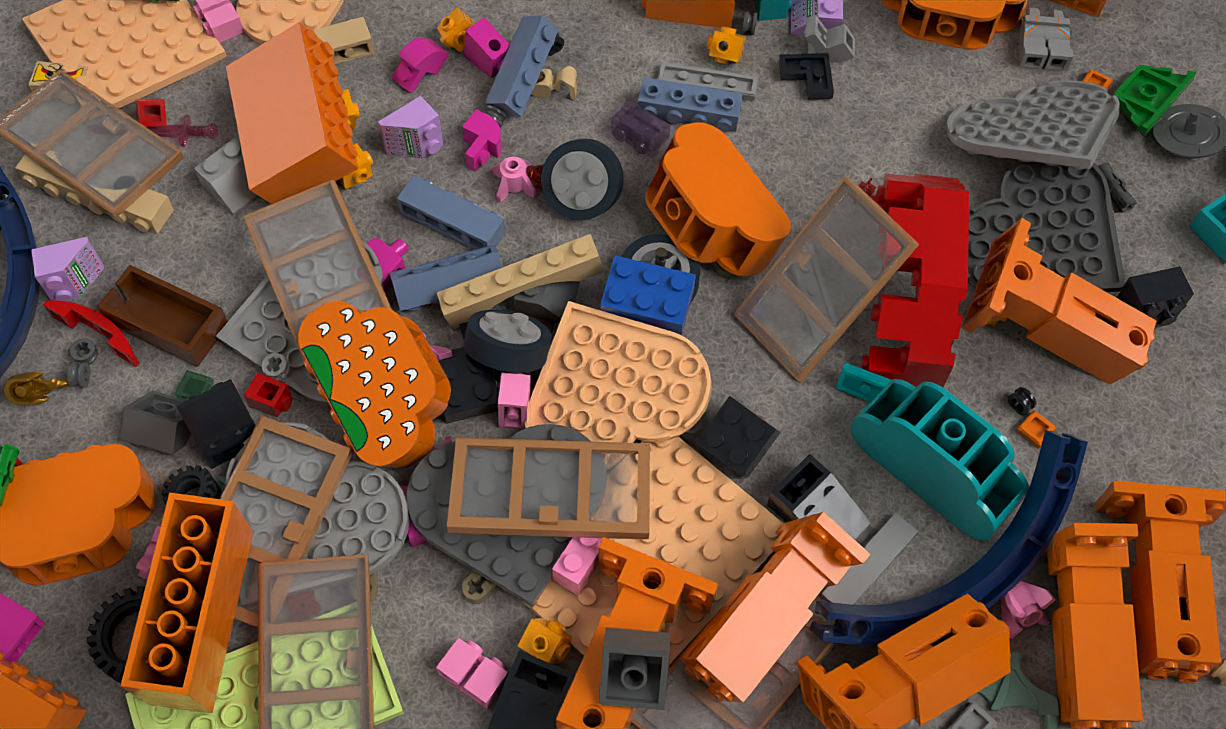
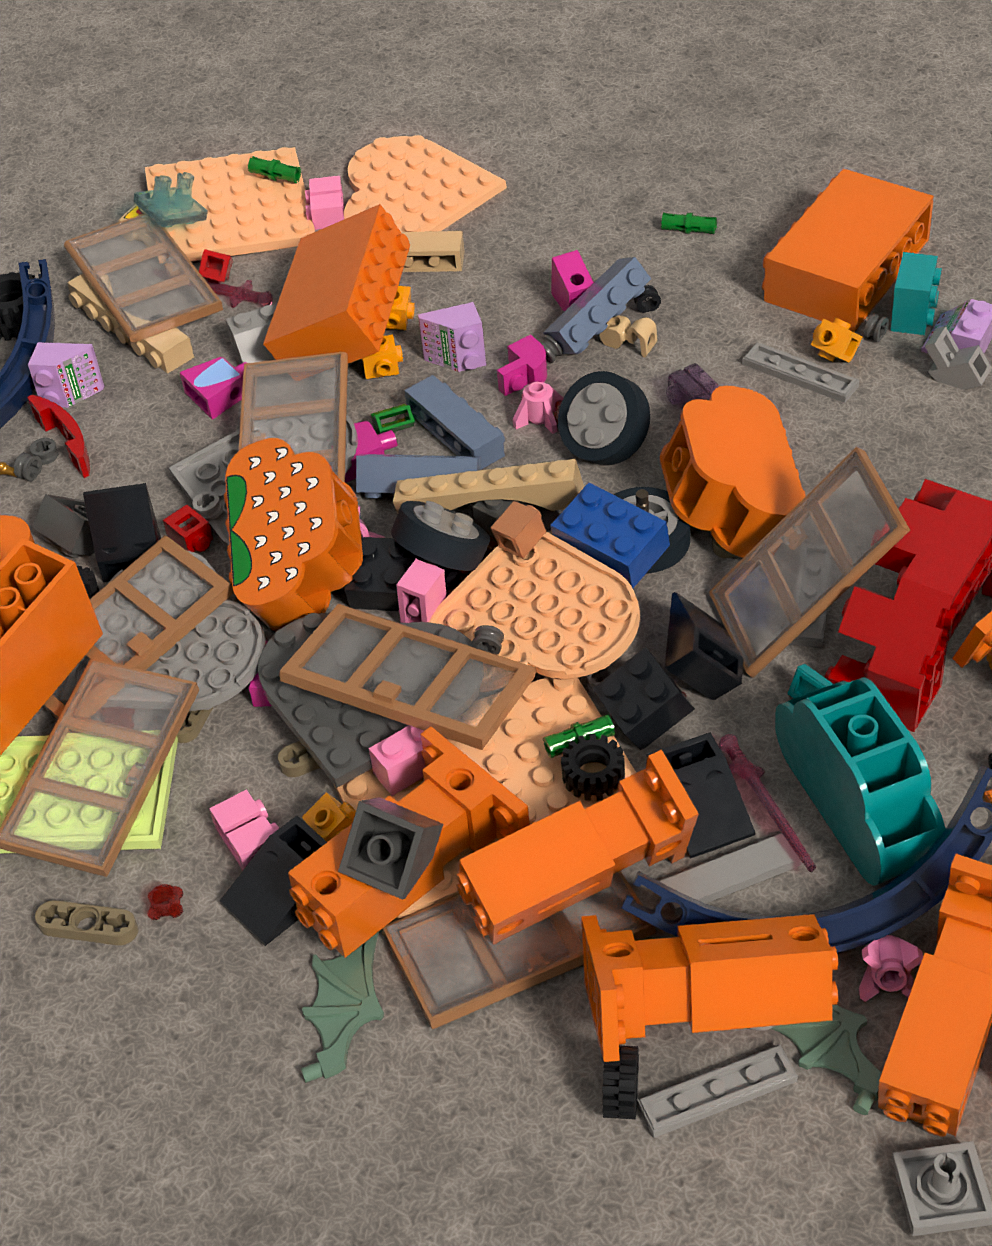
camera: 30 degrees right, 15 degrees down
(78, 57) = (171, 205): none -> clear light blue plate
(163, 315) = (130, 435): reddish brown piece -> none
(214, 236) = (214, 385): none -> dark pink torso
(393, 226) = (396, 425): none -> green piece
(418, 58) = (497, 278): dark pink brick -> none
(453, 29) = (542, 261): light orange brick -> none
(574, 315) = (518, 529): none -> nougat brick
(594, 428) = (488, 639): none -> dark grey bush
(690, 103) = (792, 394): sand blue brick -> none
(705, 489) = (555, 743): none -> green pin
(733, 498) = (592, 751): none -> black tyre
(761, 375) = (701, 650): none -> black slope
(809, 67) = (924, 386): black plate -> none
(844, 472) = (752, 774): none -> clear pink sword

